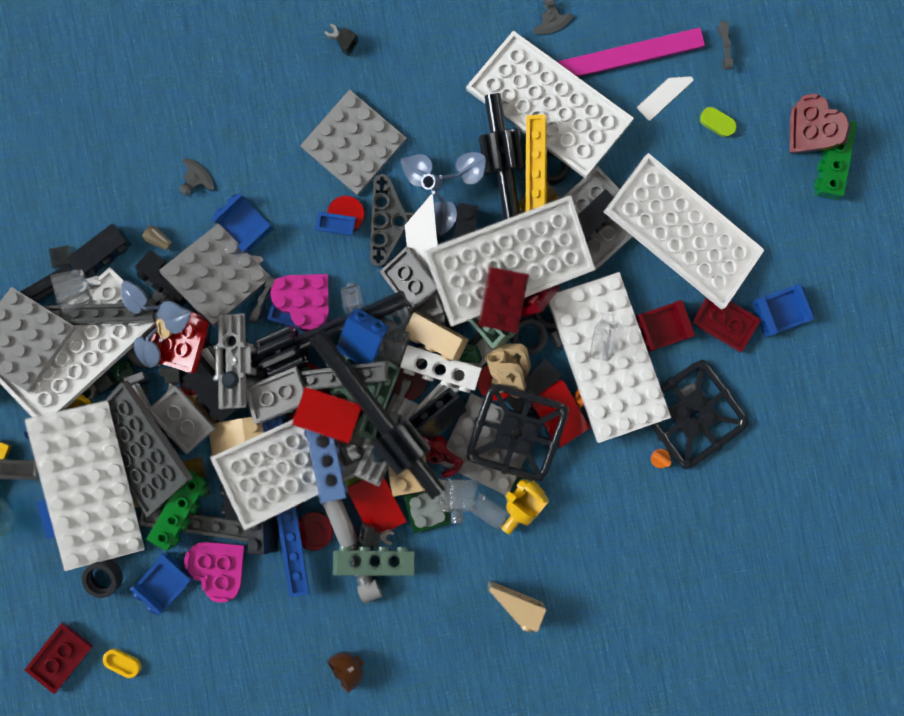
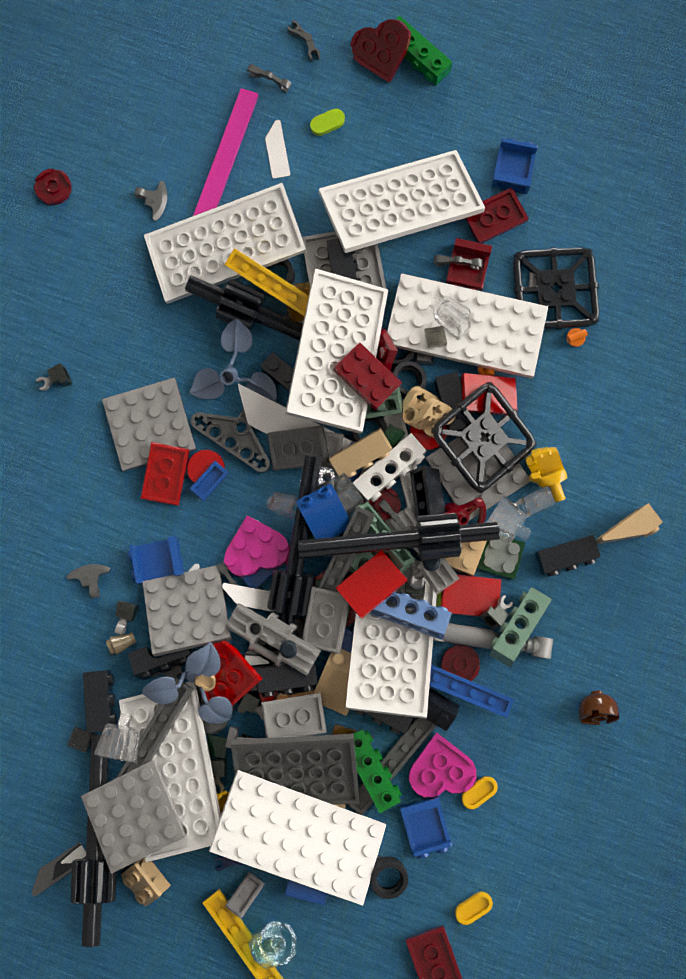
camera: 60 degrees left, 5 degrees down
(184, 226) = (125, 611): none -> pearl dark grey piece
(218, 612) = (479, 792): none -> yellow tile
(258, 317) = (248, 596): none -> white sticker
(319, 183) = (165, 473): none -> red tile
(461, 566) = (568, 555): none -> black brick
(578, 336) = (435, 337): none -> clear smoke tile
(655, 301) = (441, 260): none -> dark grey piece
(785, 45) = (299, 32): none -> dark grey piece

